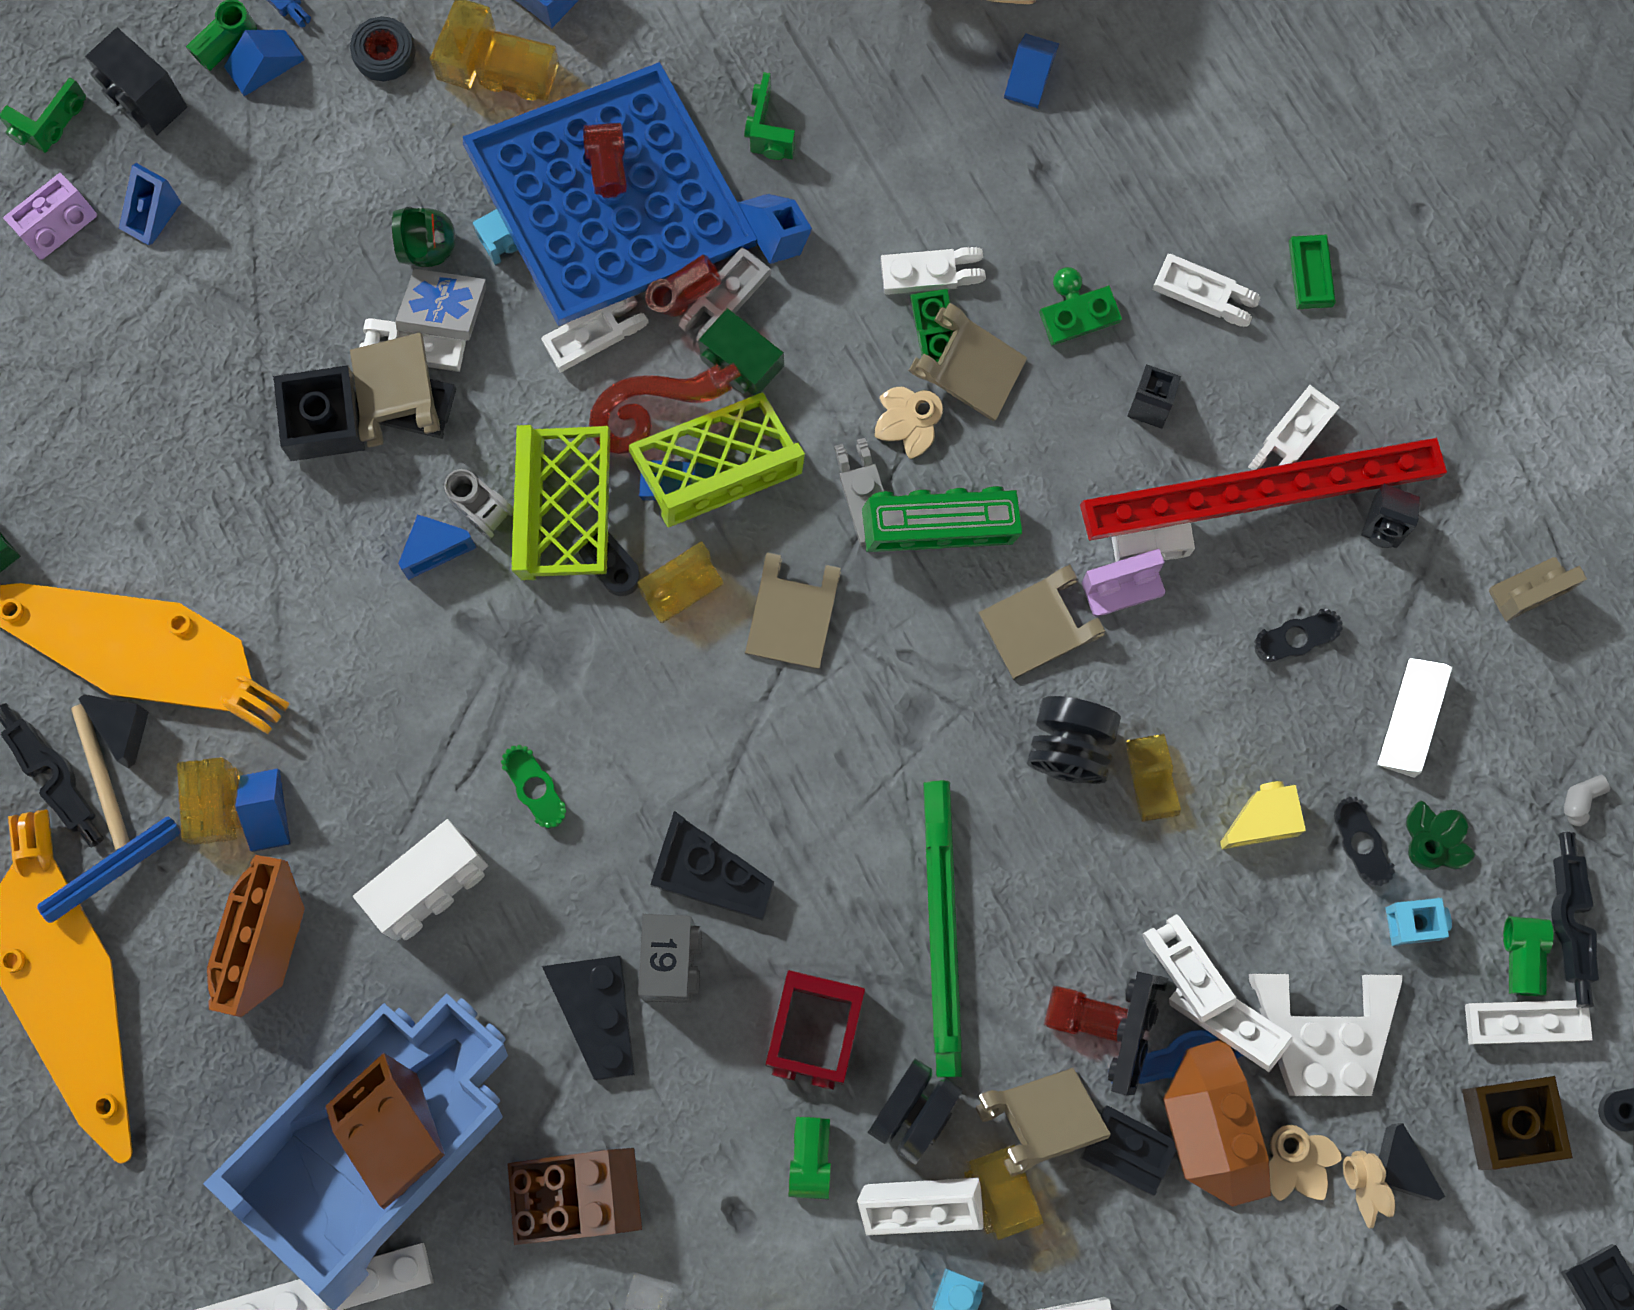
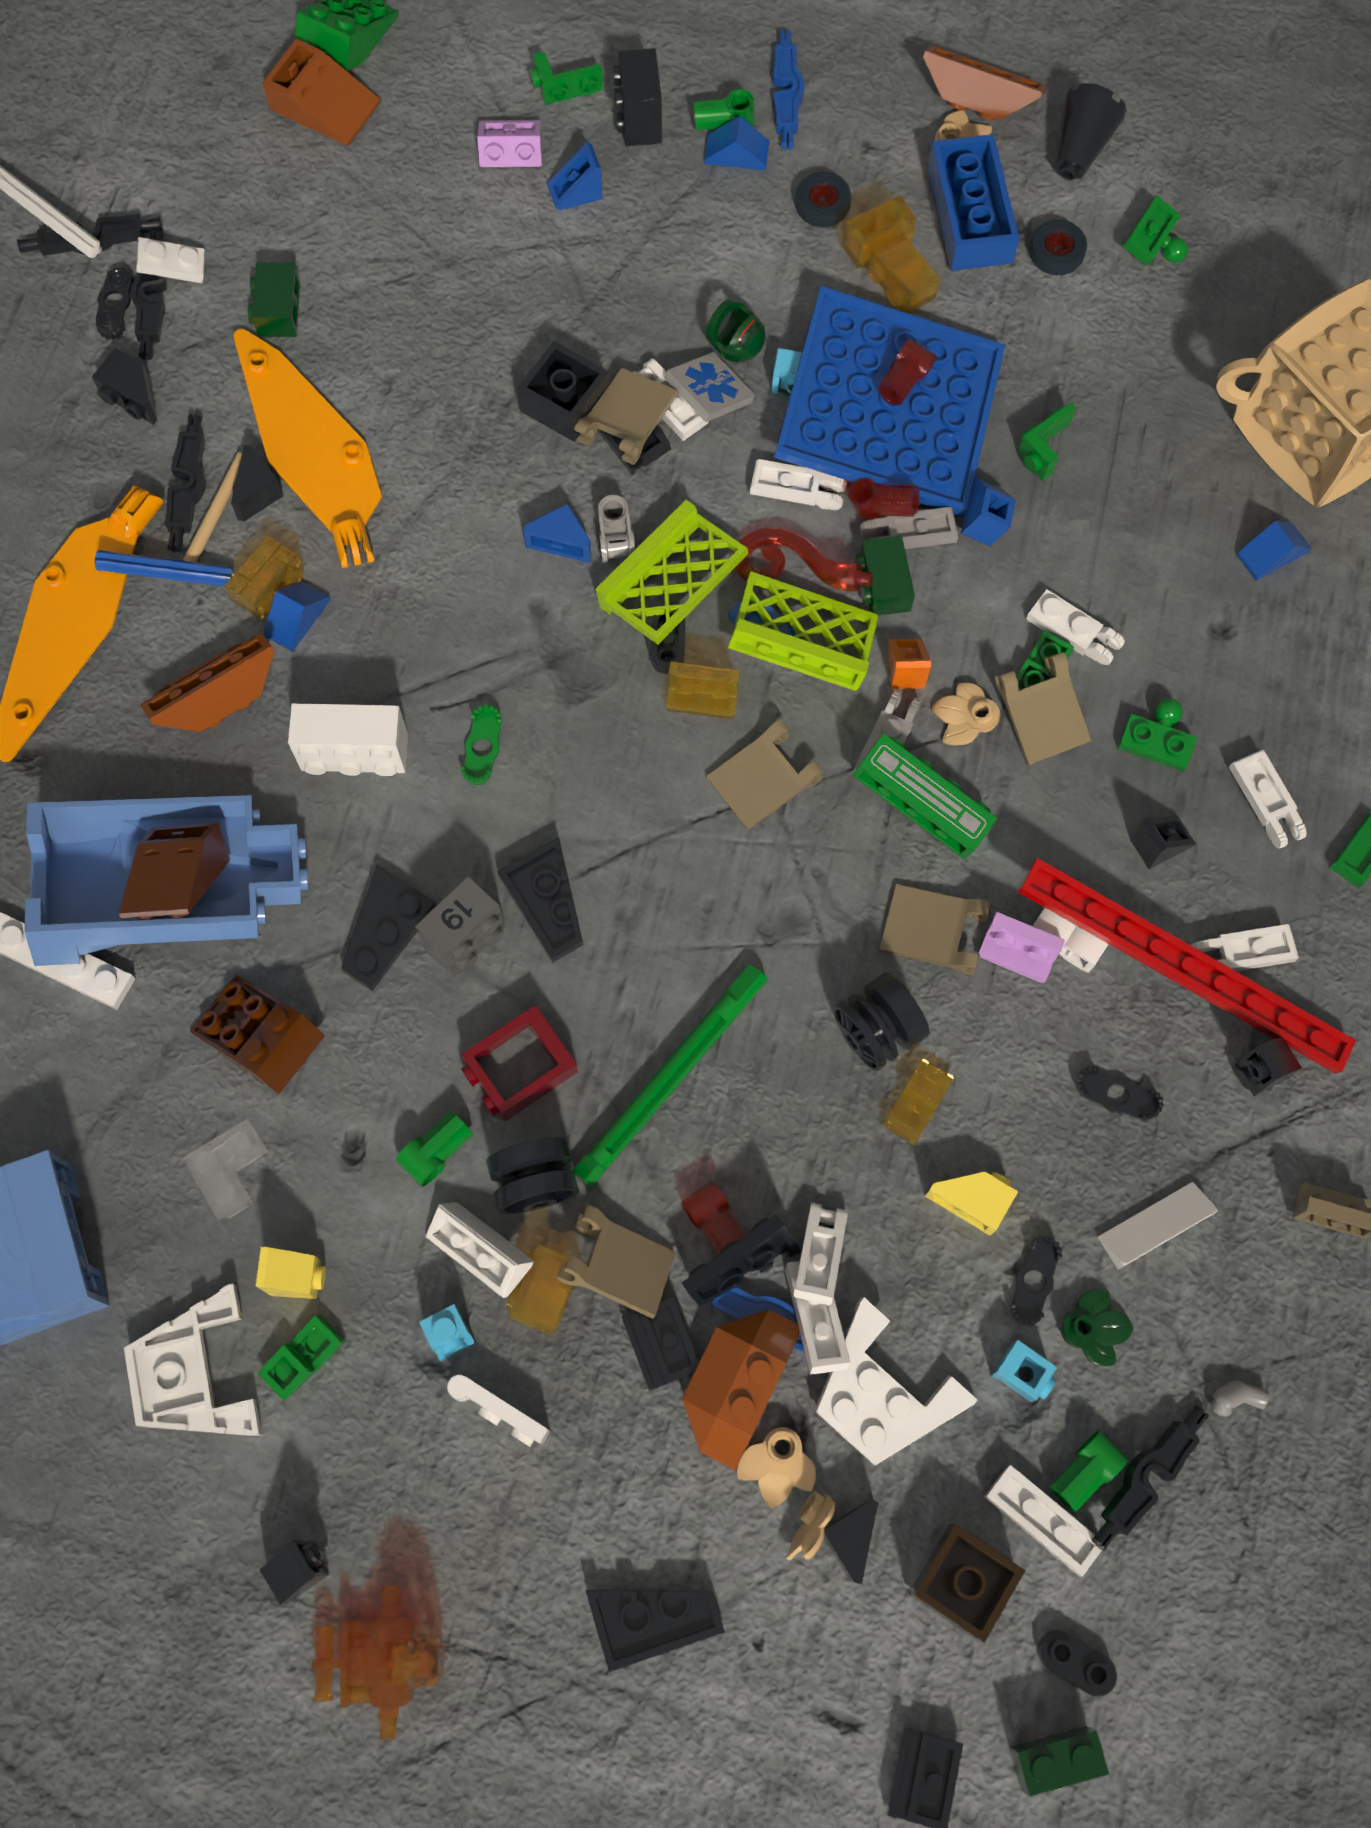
camera: 40 degrees right, 5 degrees down
(824, 413) = (908, 663): none -> orange slope

